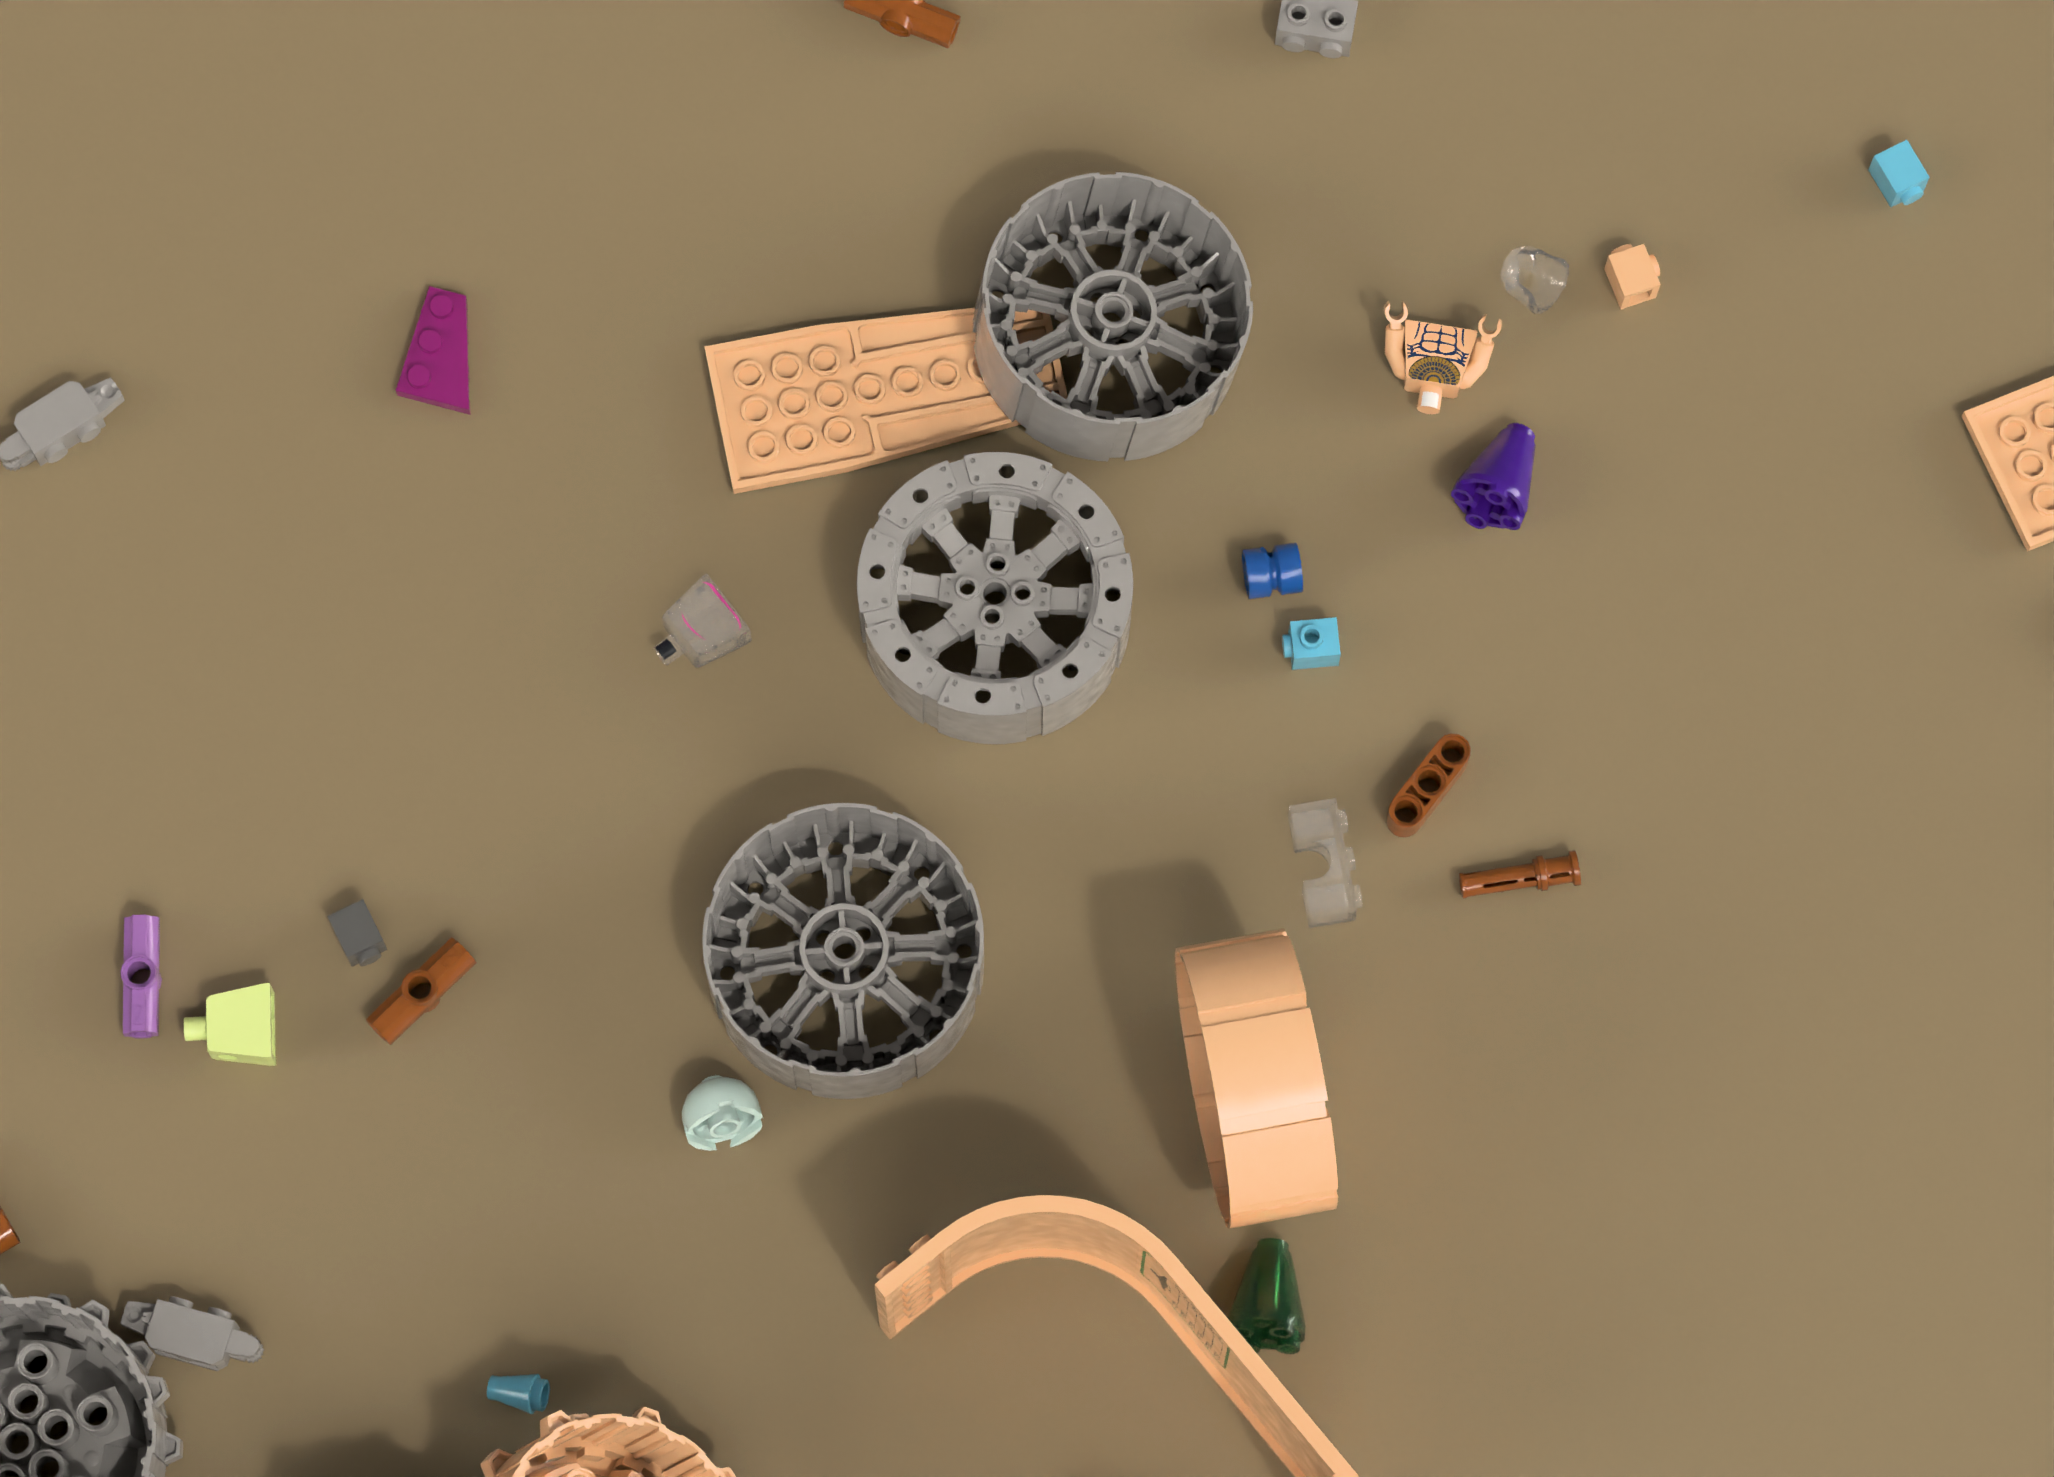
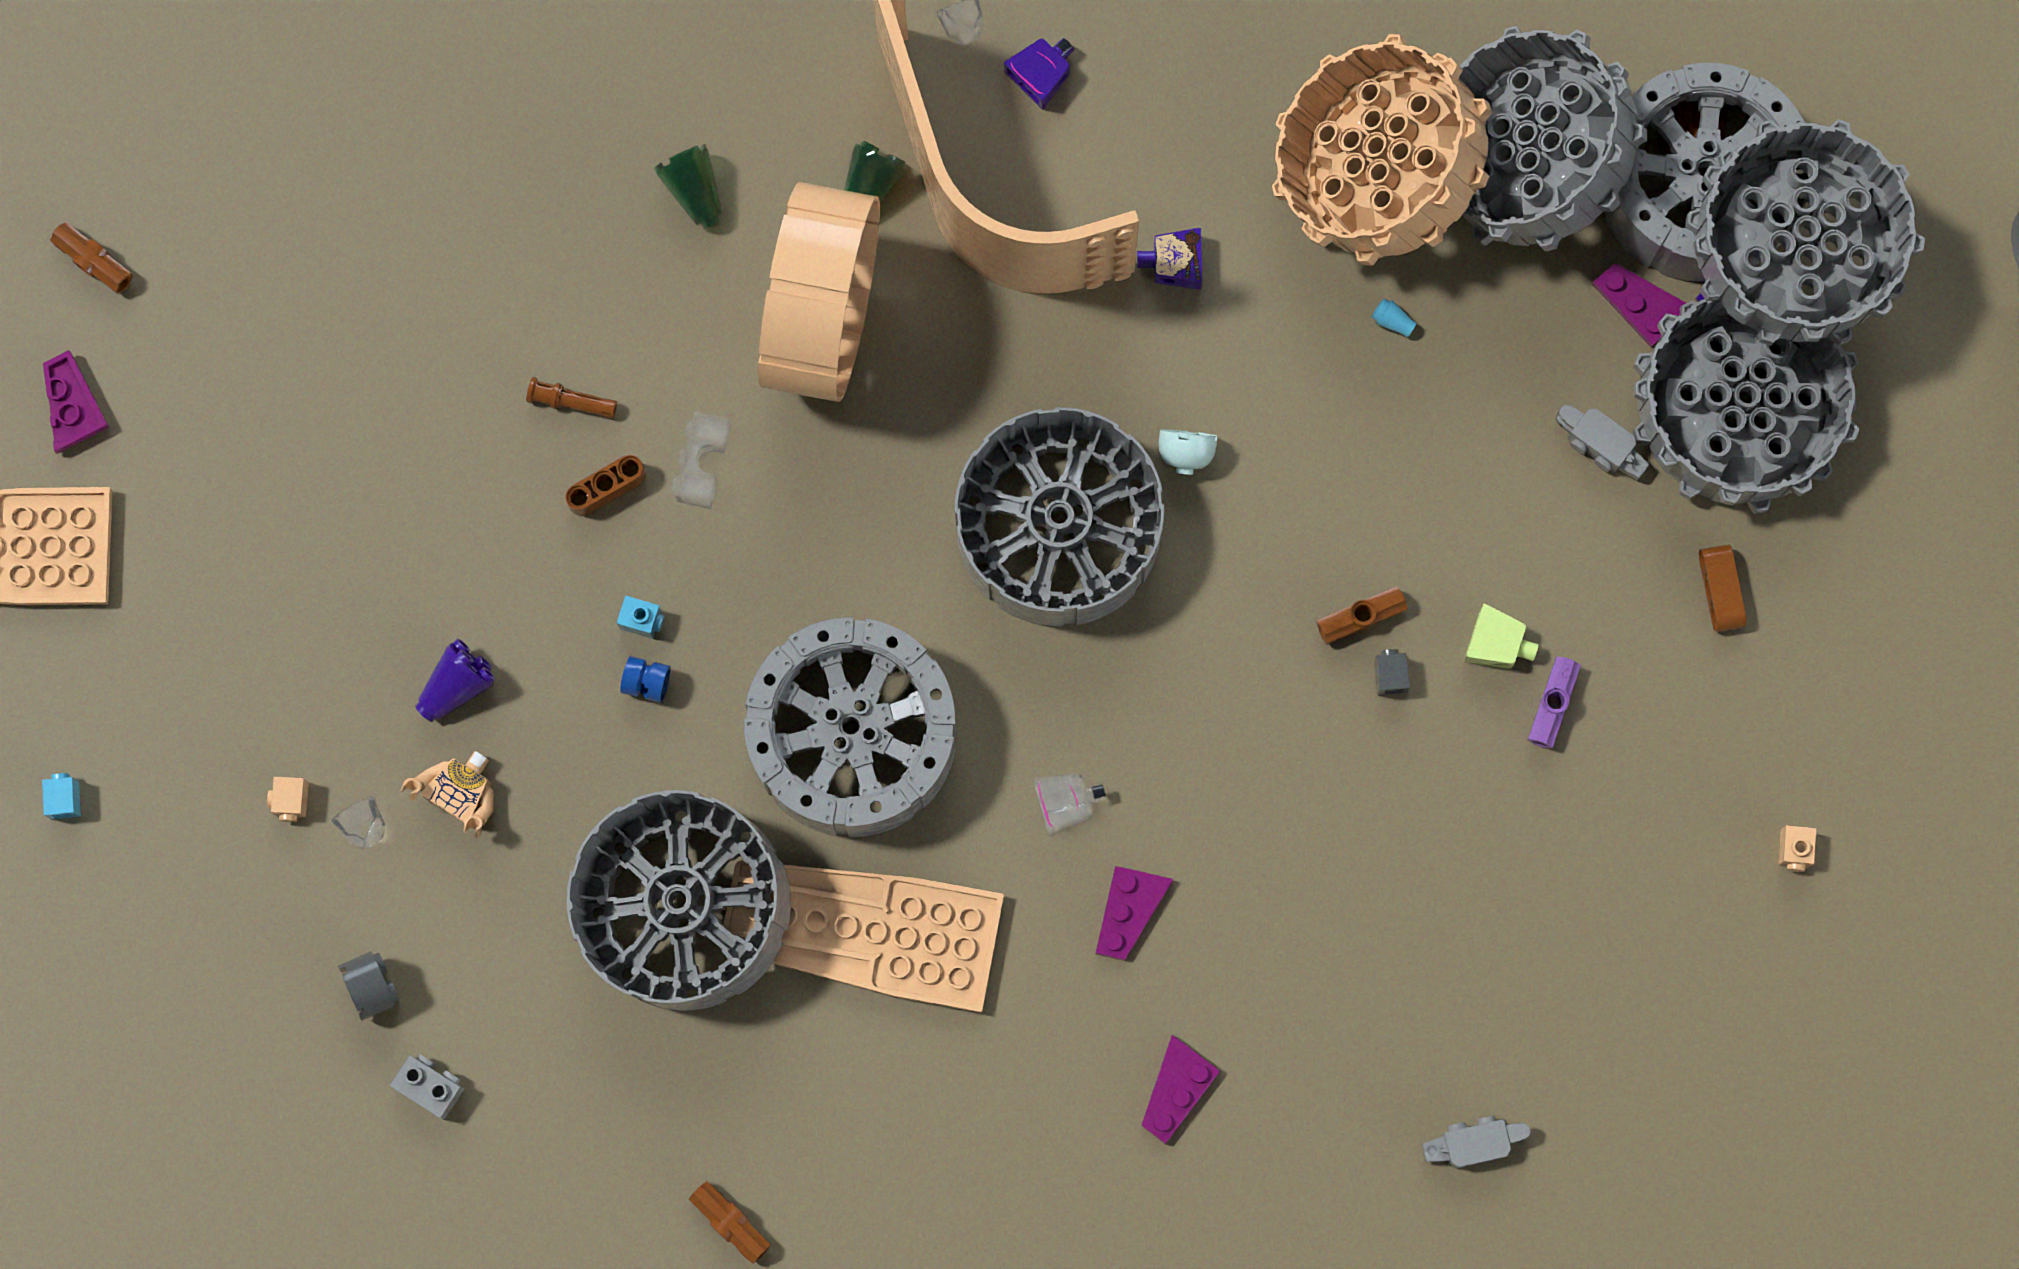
camera: 155 degrees left, 5 degrees up
(576, 534) = (1128, 909): none -> magenta wing
(831, 1356) = (1175, 259): none -> torso
(1436, 99) = (367, 984): none -> dark grey brick
(1492, 1204) = (693, 184): none -> clear green cone

